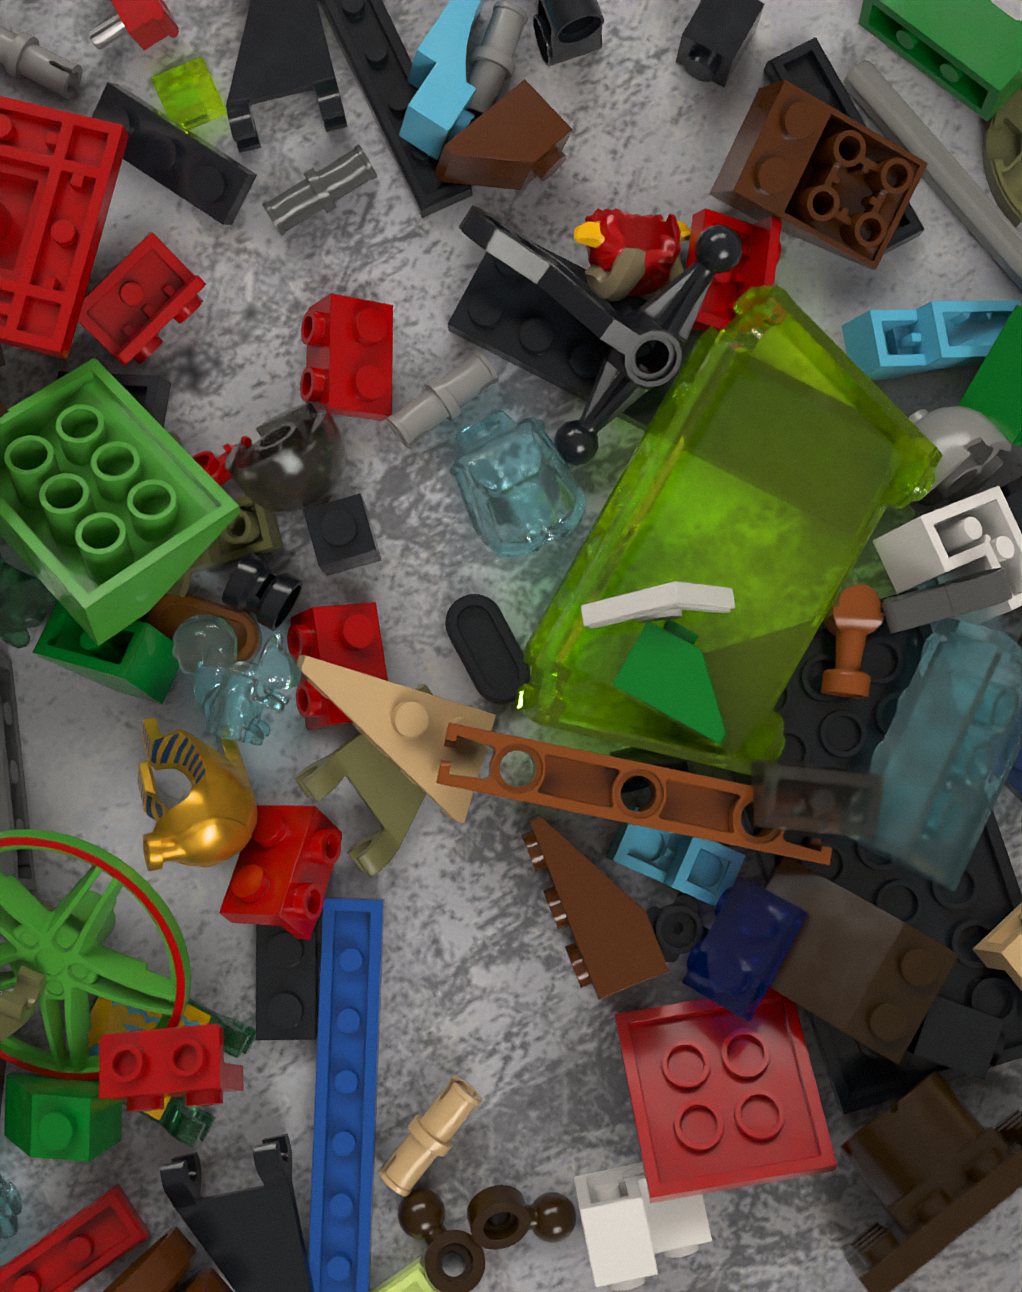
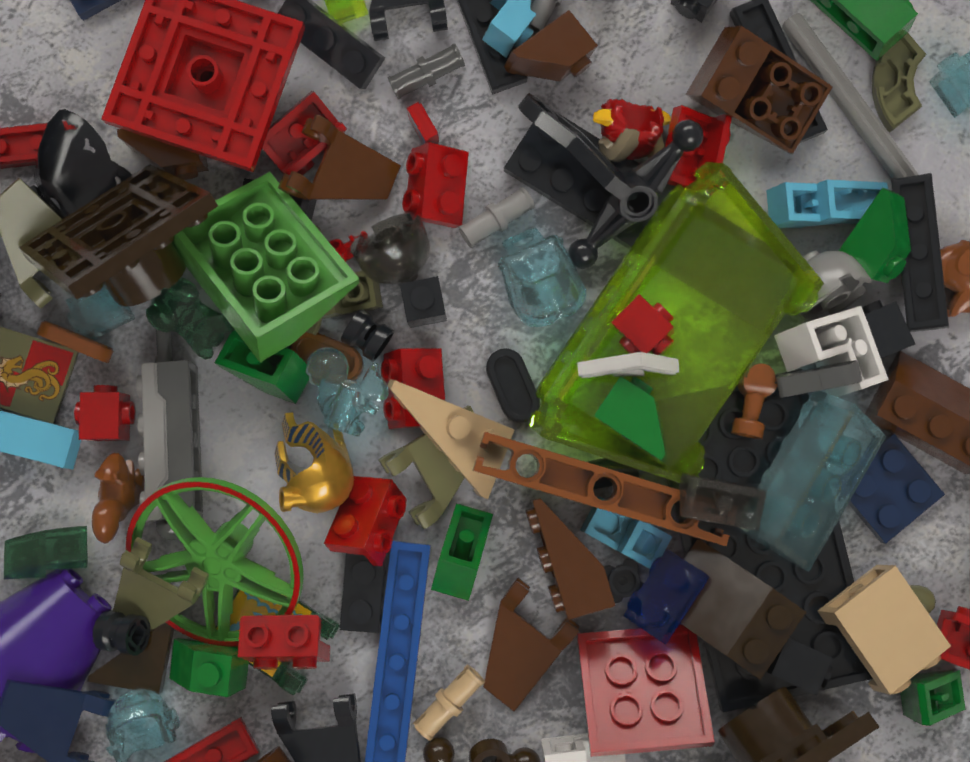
camera: 10 degrees right, 0 degrees up
(209, 344) = (346, 170): none -> reddish brown flag
(319, 267) = (422, 123): none -> red tile
(431, 906) = (462, 552): none -> green slope
(533, 1047) = (521, 651): none -> reddish brown flag
(678, 544) = (644, 327): none -> red brick

